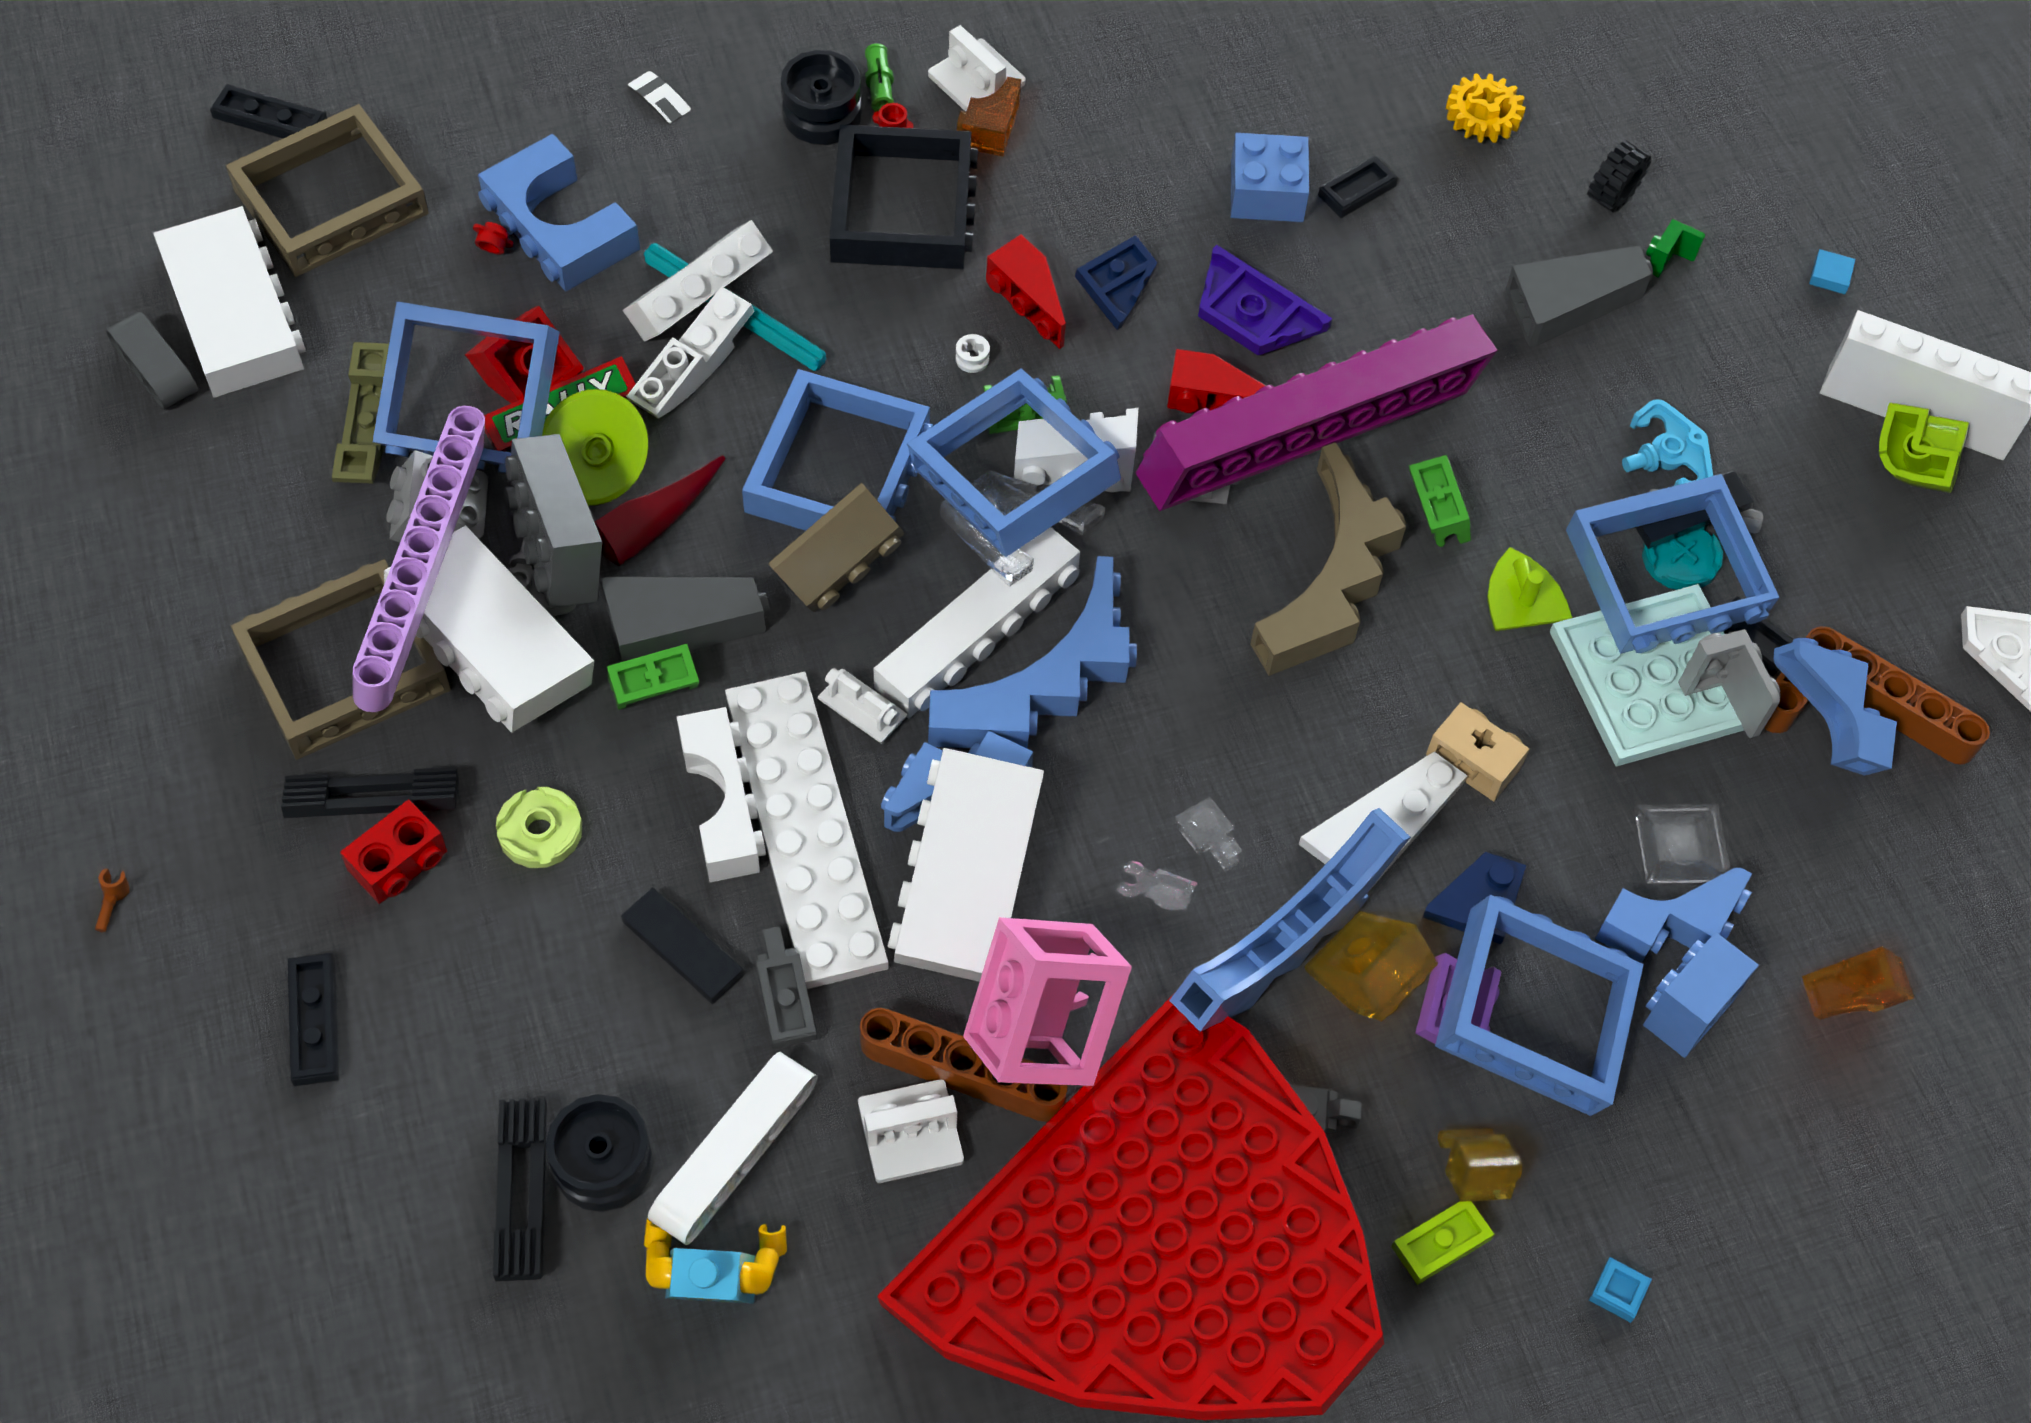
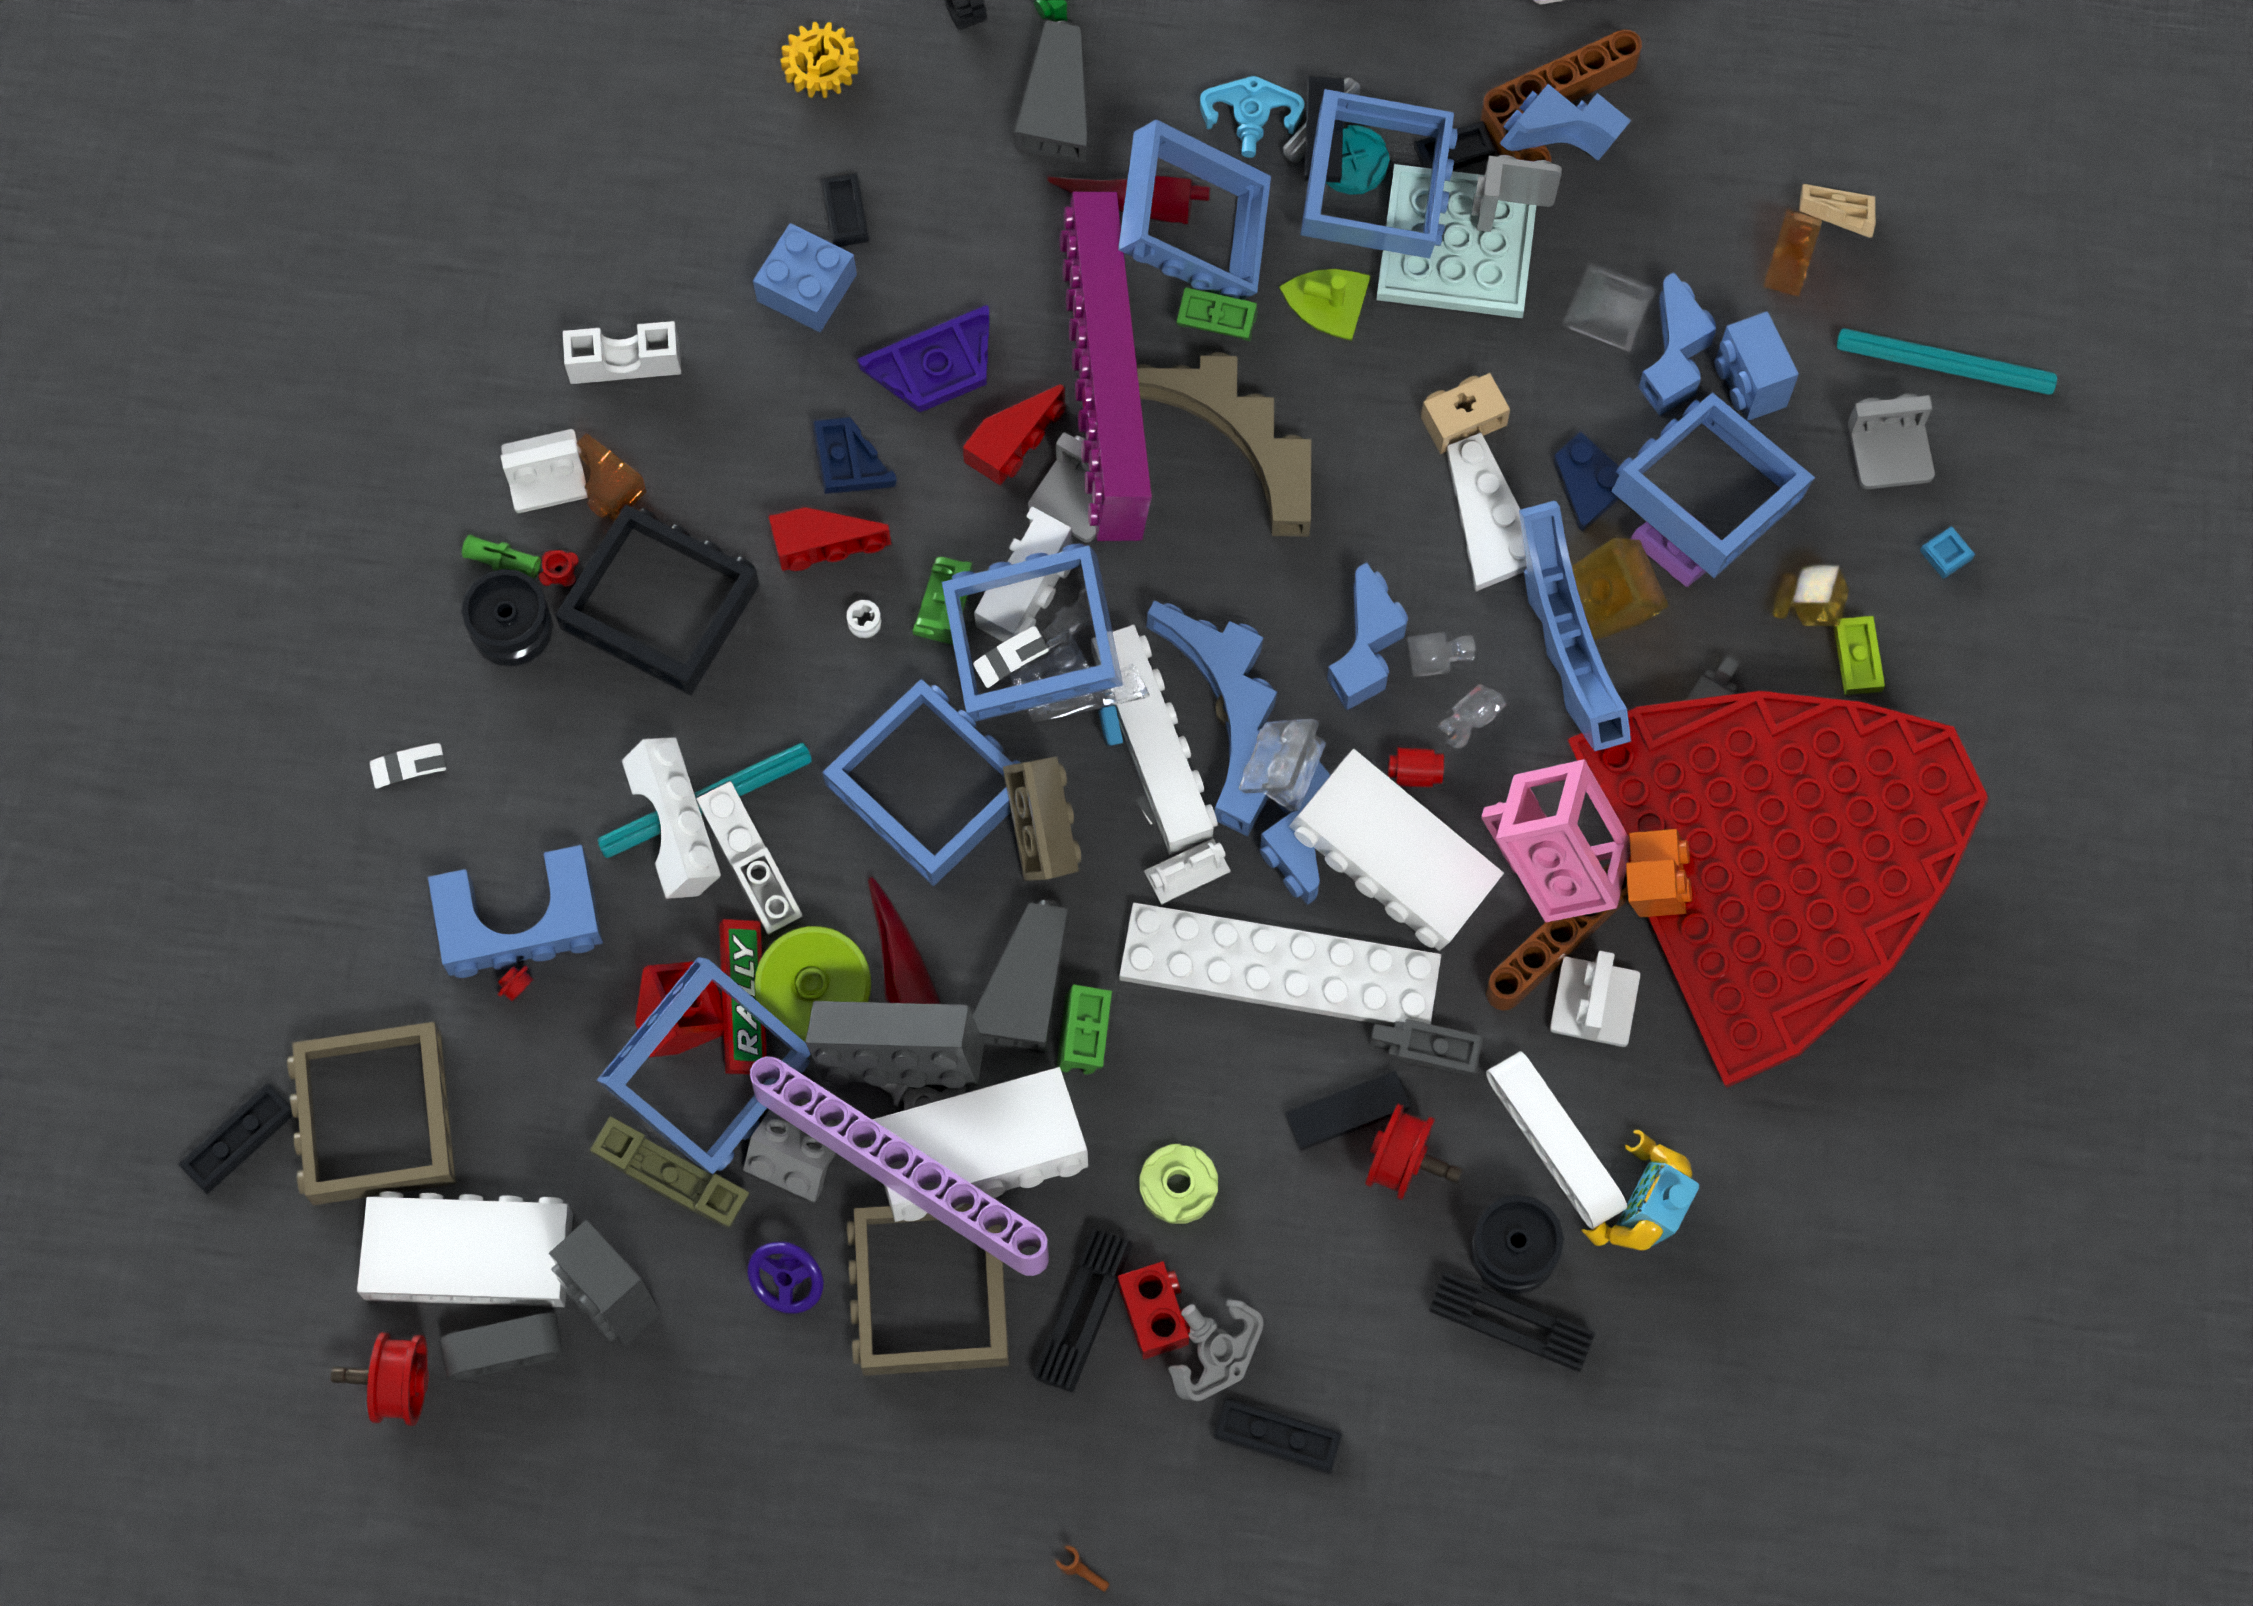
camera: 60 degrees left, 10 degrees up
(83, 288) = (394, 1379): none -> red wheel
(215, 383) = (603, 1284): none -> dark grey brick
(306, 540) = (786, 1272): none -> dark purple piece
(368, 928) = (1222, 1355): none -> light grey piece
(647, 1001) = (1402, 1153): none -> red wheel
(728, 837) = (1177, 1008): white arch -> none
(968, 574) = (1110, 726): none -> dark azure tile
(979, 448) = (1010, 656): none -> white sticker
(1002, 725) = (1284, 761): none -> clear bracket
(1066, 1119) = (1656, 873): none -> orange brick
(1074, 858) = (1416, 767): none -> red brick
(1126, 96) = (598, 358): none -> white arch
(1200, 762) = (1377, 626): none -> medium blue arch
(1524, 399) = (1170, 199): none -> dark red piece
(1579, 413) = (1214, 166): none -> medium blue window
(1708, 1174) = (1891, 441): none -> light grey bracket
(1842, 1201) = (1947, 361): none -> teal axle
(1938, 1012) = (1840, 208): none -> tan wing

